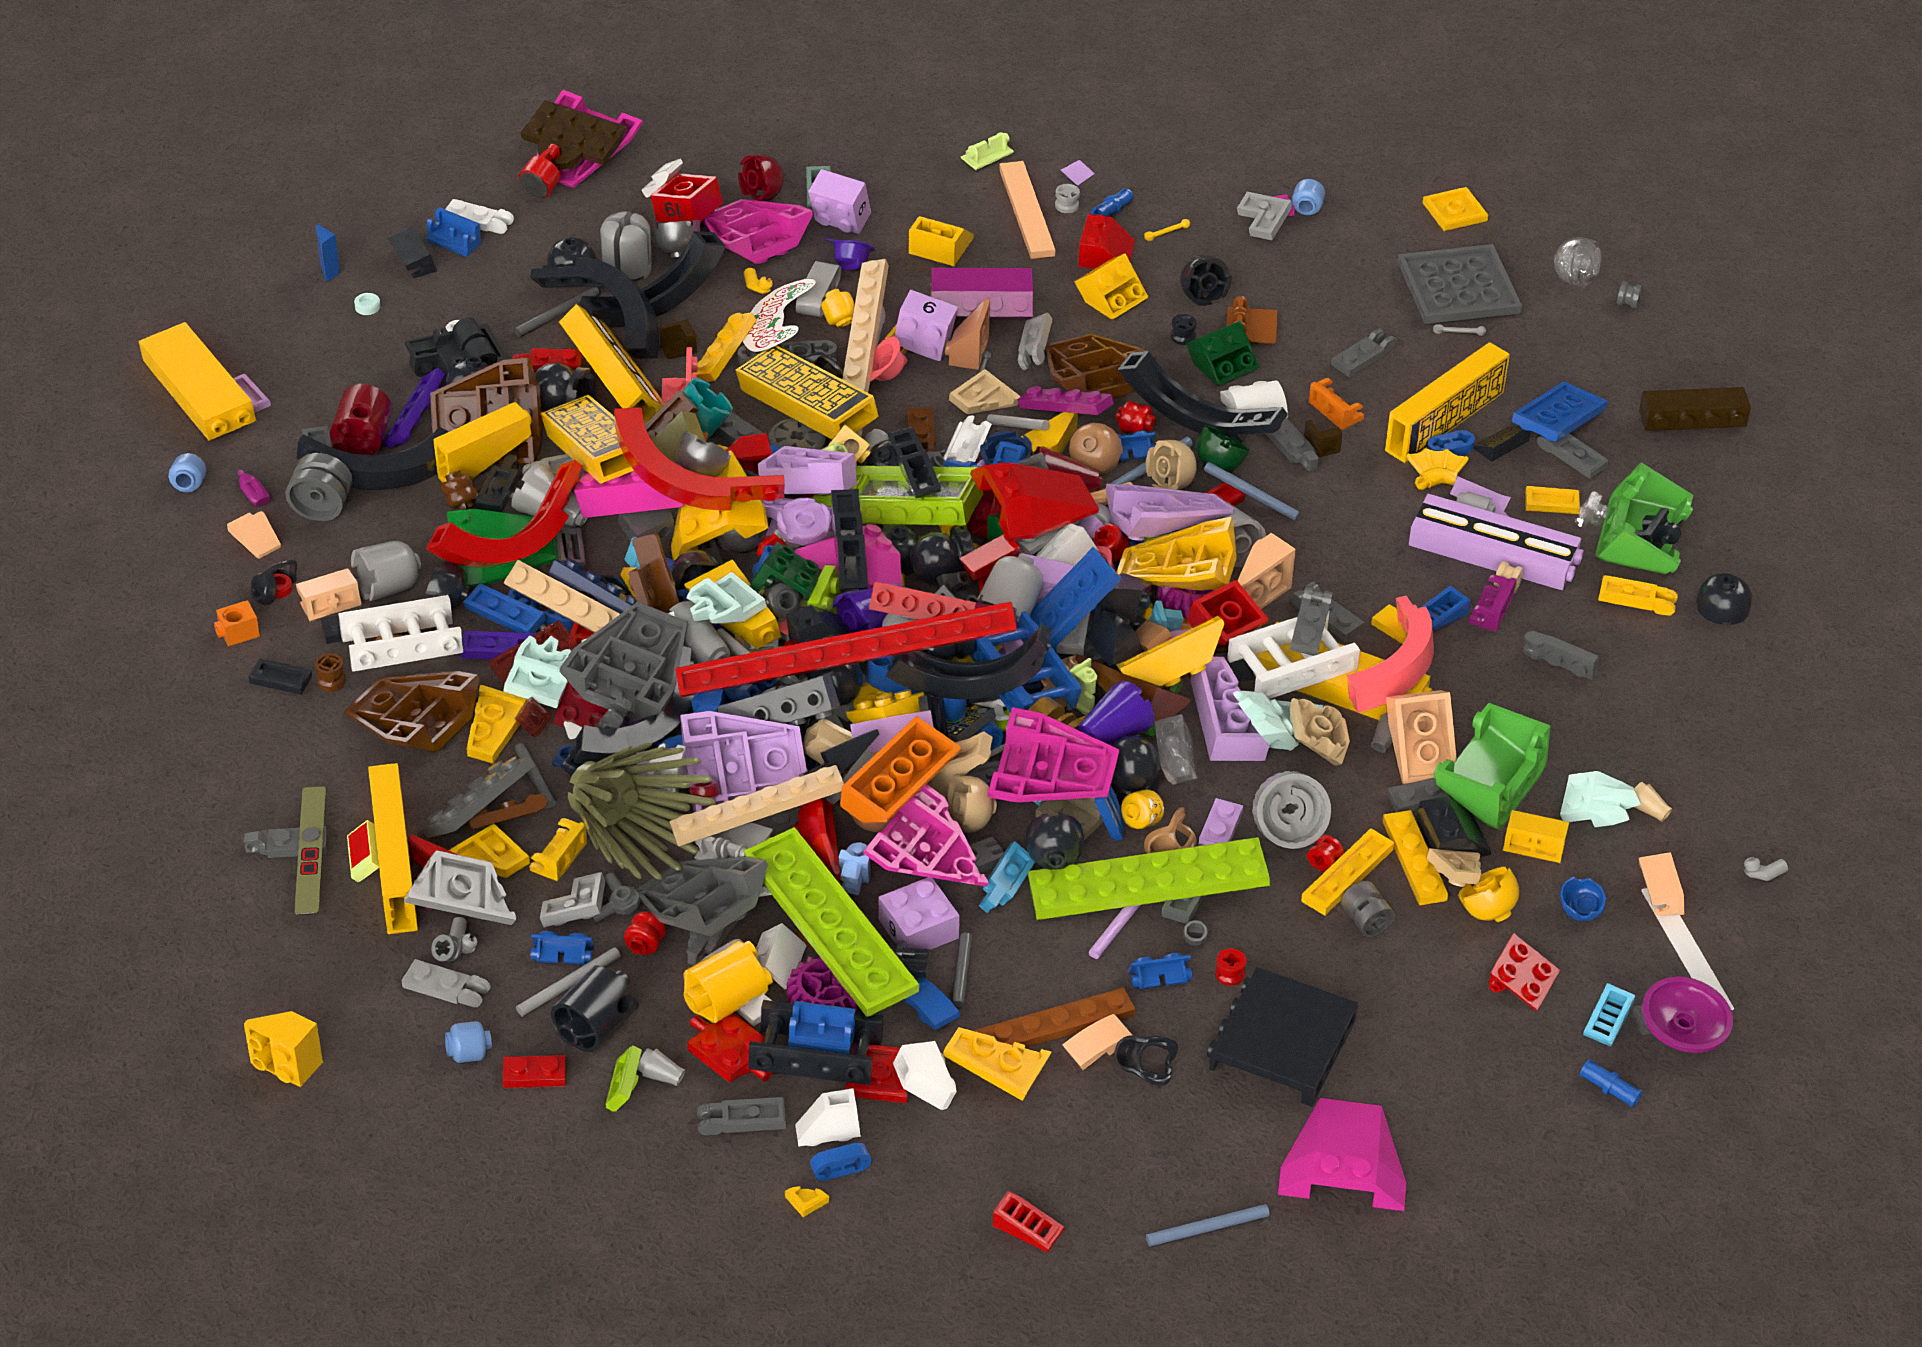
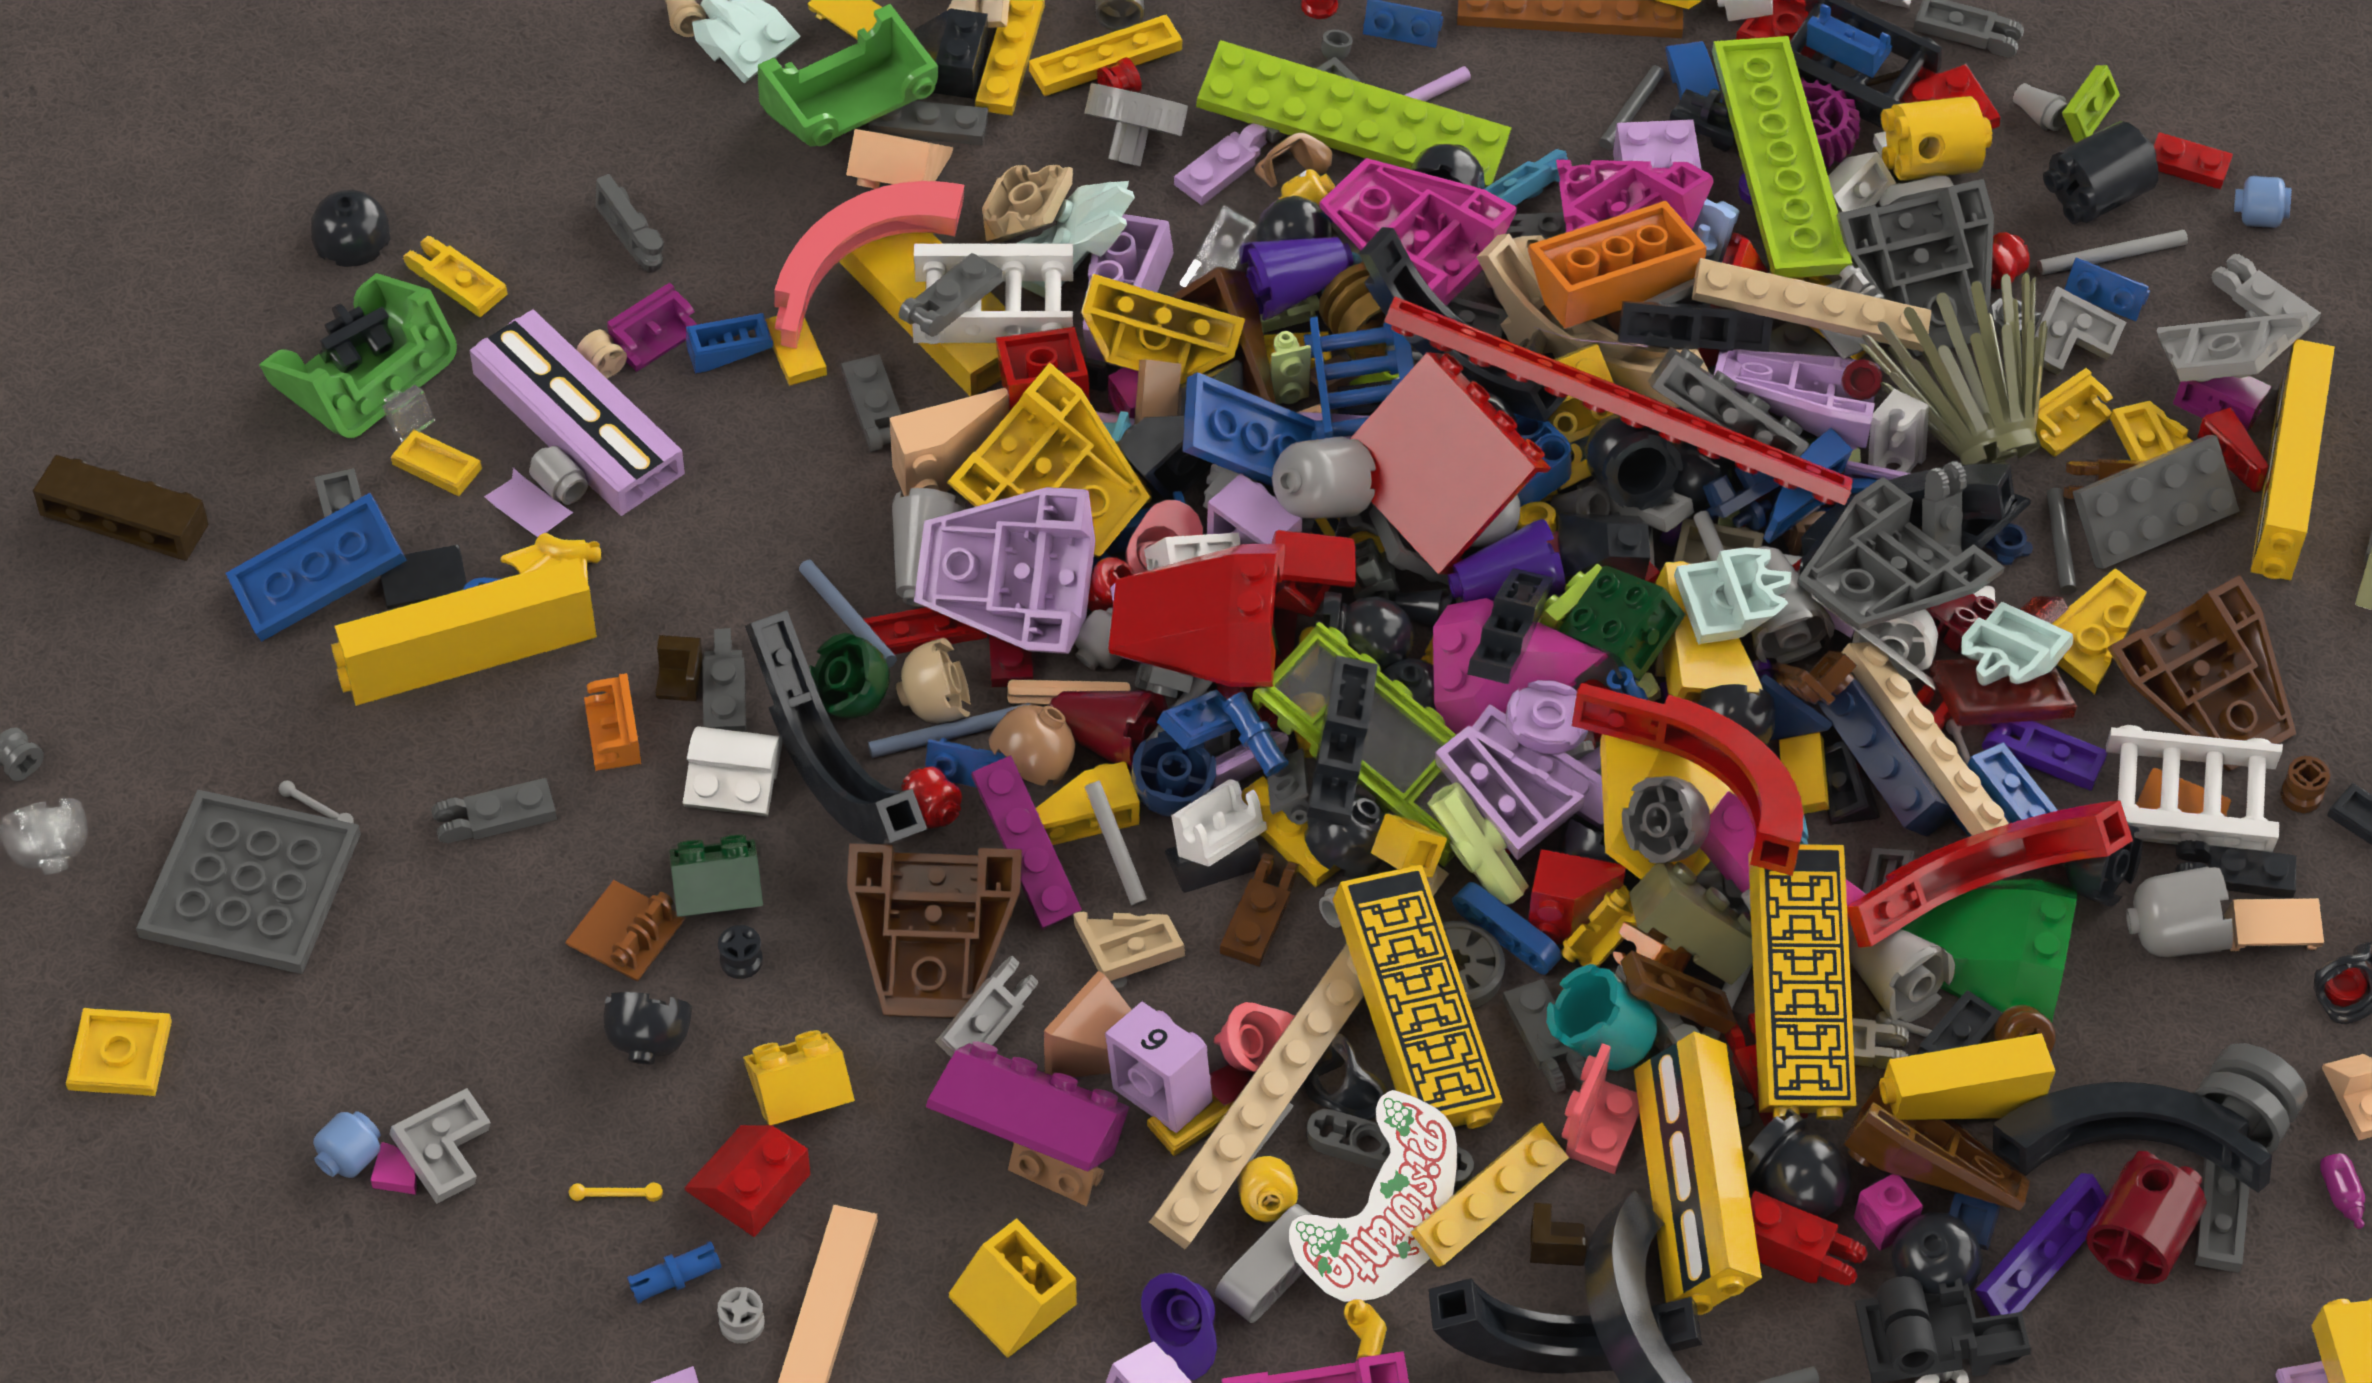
camera: 155 degrees left, 10 degrees up
(363, 851) = (2328, 498): tile -> none

